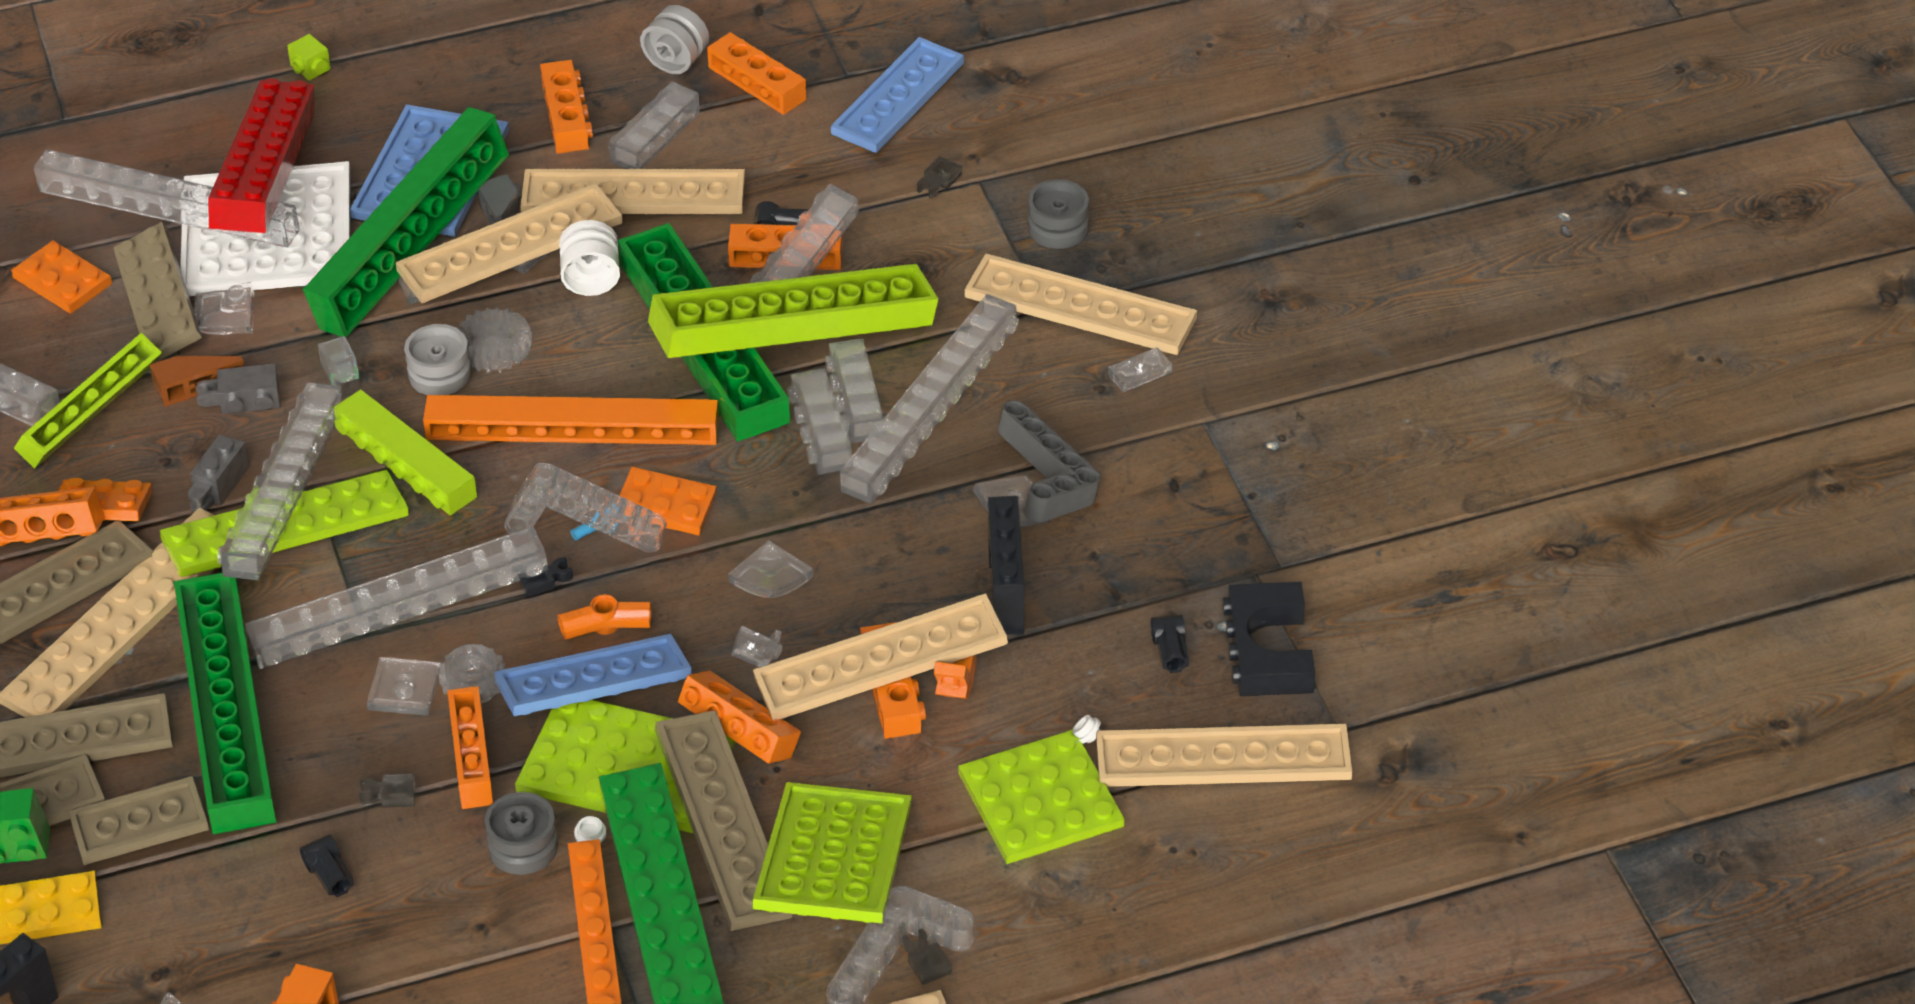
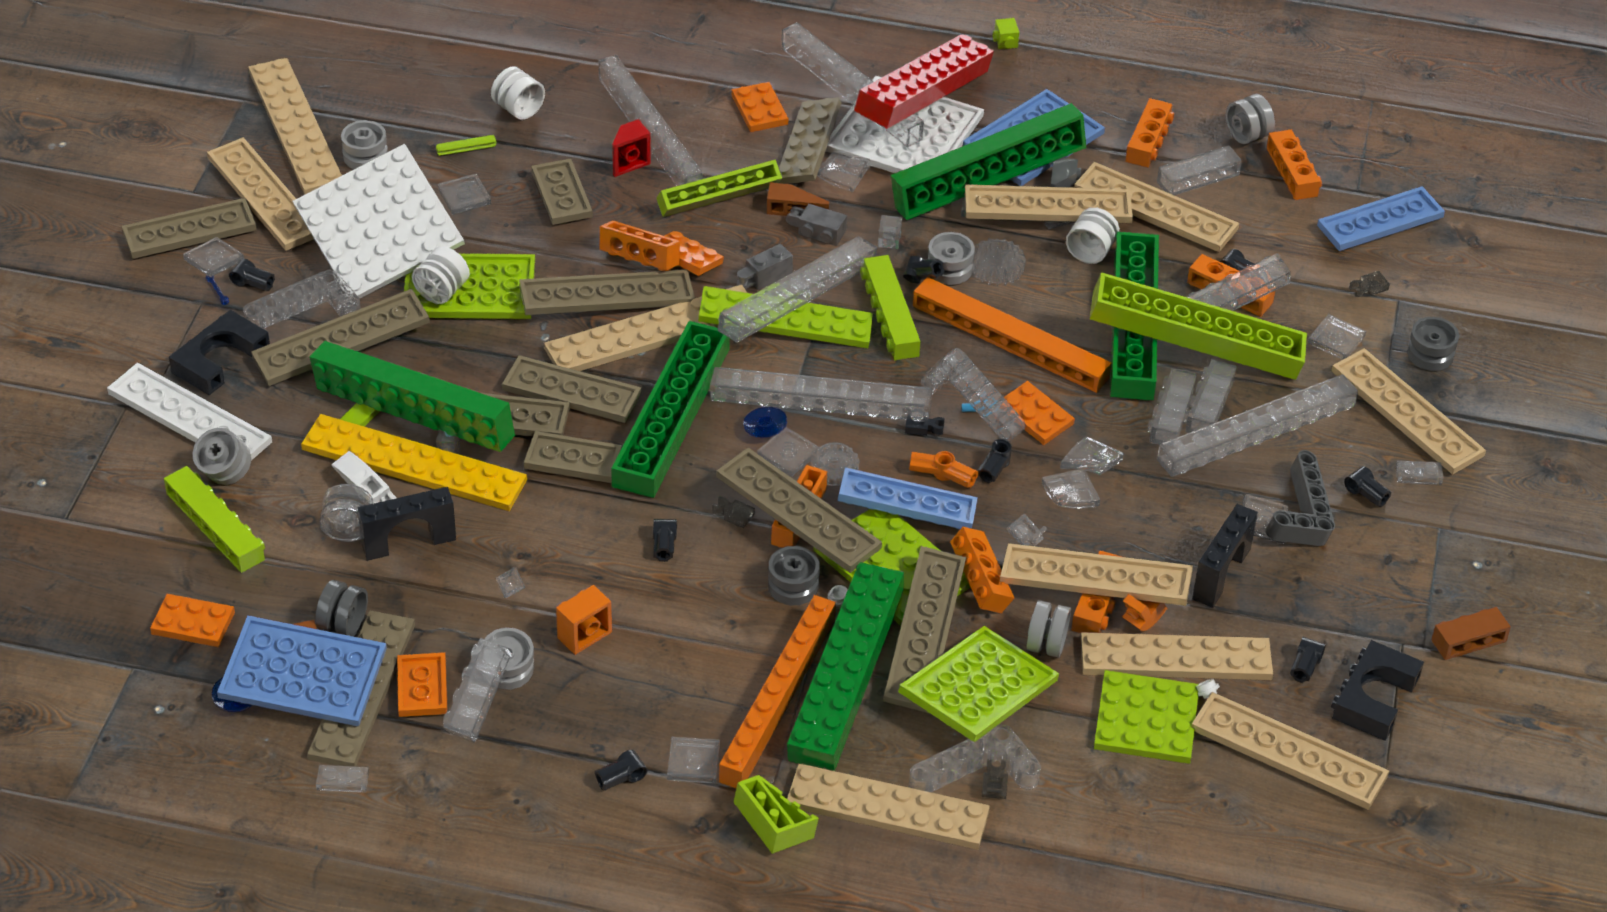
camera: 30 degrees right, 0 degrees up
(351, 663) = (765, 422): none -> clear blue dish
(408, 389) = (919, 269): none -> black piece
(480, 748) = (799, 509): none -> dark tan plate
(661, 579) = (996, 460): none -> black piece
(768, 522) = (1091, 456): none -> clear plate
(868, 748) = (1045, 628): none -> light grey wheel
(944, 254) = (1337, 336): none -> clear plate
(1023, 710) = (1177, 656): none -> tan plate
(1089, 409) = (1363, 482): none -> black piece
(1322, 525) = (1470, 633): none -> dark orange brick

